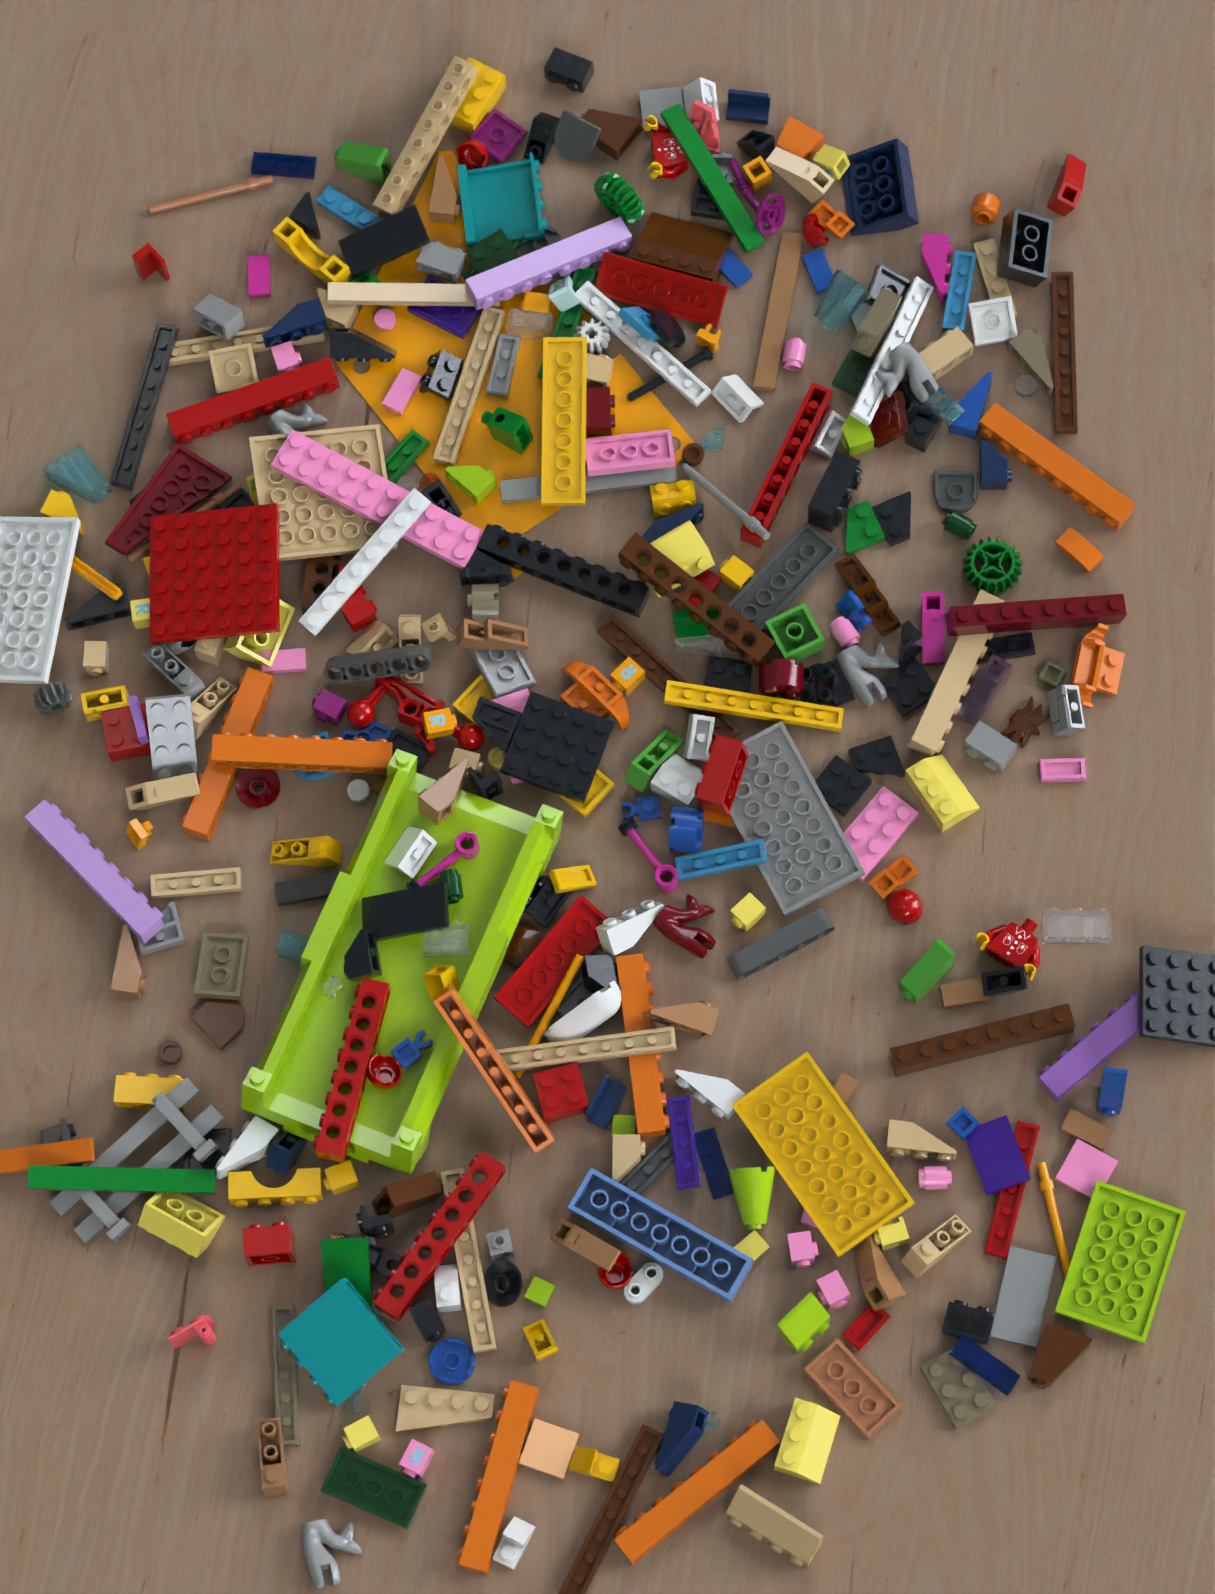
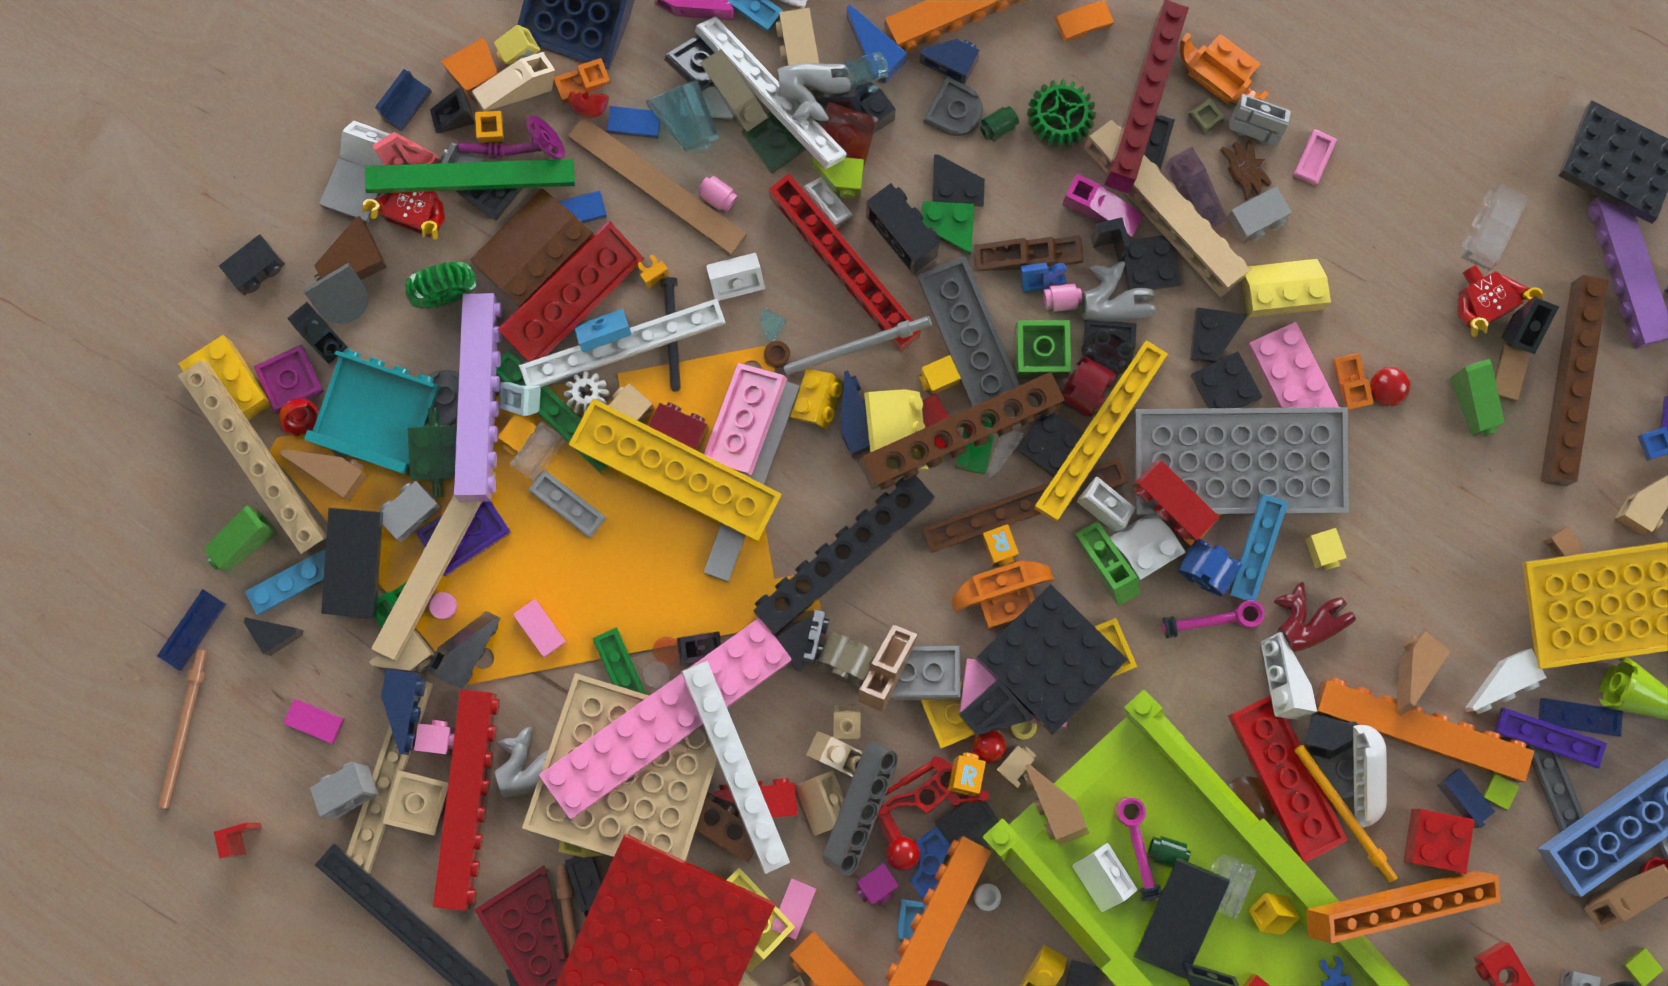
camera: 70 degrees left, 10 degrees up
(299, 246) = (309, 657): yellow arch -> none
(441, 374) = (543, 576): bracket -> none
(469, 386) = (574, 552): tan plate -> none
(472, 481) = (689, 602): lime slope -> none
(488, 787) = (1061, 755): black panel -> none
(508, 429) = (658, 531): green torso -> none
(544, 901) = (1215, 750): black bracket -> none
(572, 878) = (1204, 714): yellow tile -> none
(589, 1049) = (1408, 792): tan tile -> none
(626, 1154) = (1538, 806): tan slope -> none
(646, 808) = (1155, 597): blue plate -> none
(668, 328) = (626, 307): black tile -> none
(780, 944) = (1375, 532): dark grey beam -> none

